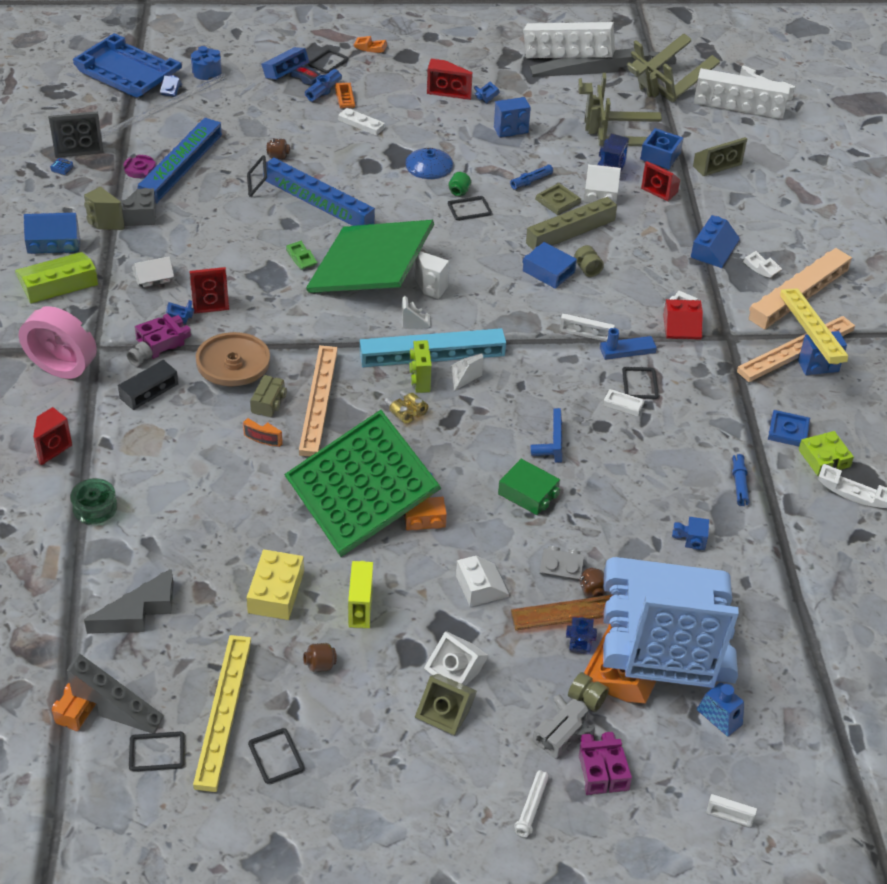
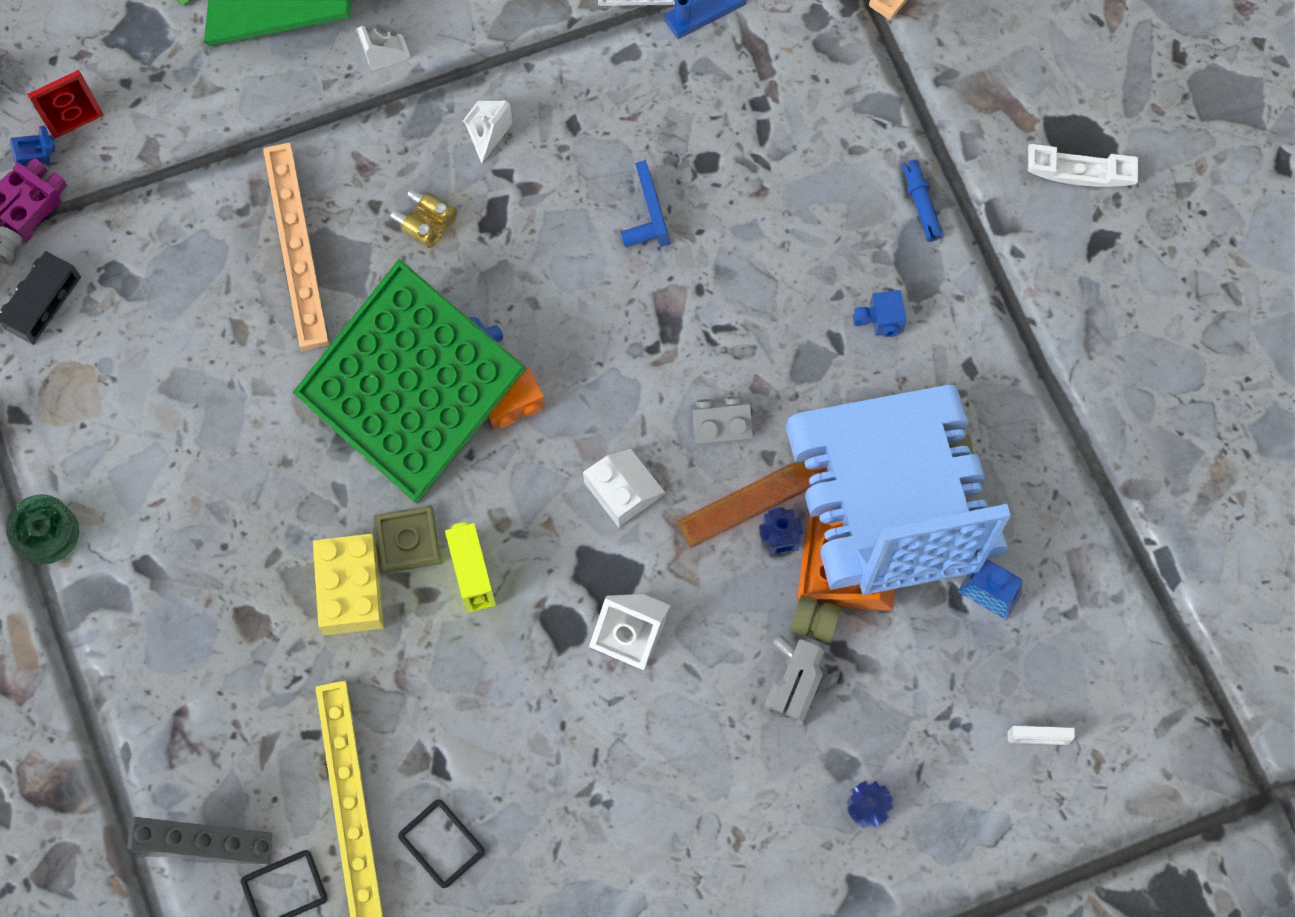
camera: 15 degrees left, 25 degrees up
(71, 710) = (147, 874): orange brick -> none
(130, 610) = (166, 691): dark grey slope -> none
(232, 359) = (146, 215): medium nougat dish -> none
(263, 434) = (243, 333): slope -> none
(268, 396) = (221, 263): olive brick -> none
(320, 657) = (448, 680): reddish brown head -> none
(325, 574) = (407, 539): none -> olive tile
(420, 366) = (424, 145): lime piece -> none
(441, 346) = (427, 99): medium azure brick -> none
(445, 703) = (636, 696): olive slope -> none
(523, 826) = (791, 807): white axle -> none
(529, 487) = (640, 306): green brick -> none
(589, 816) = (867, 815): none -> clear blue brick
(592, 583) = (773, 442): reddish brown head -> none
(604, 764) = (864, 719): magenta hips -> none
(623, 402) = (726, 111): white tile -> none
(641, 369) = (760, 61): black piece -> none
(788, 428) = (965, 86): blue tile -> none
(823, 450) = (1024, 114): lime piece -> none

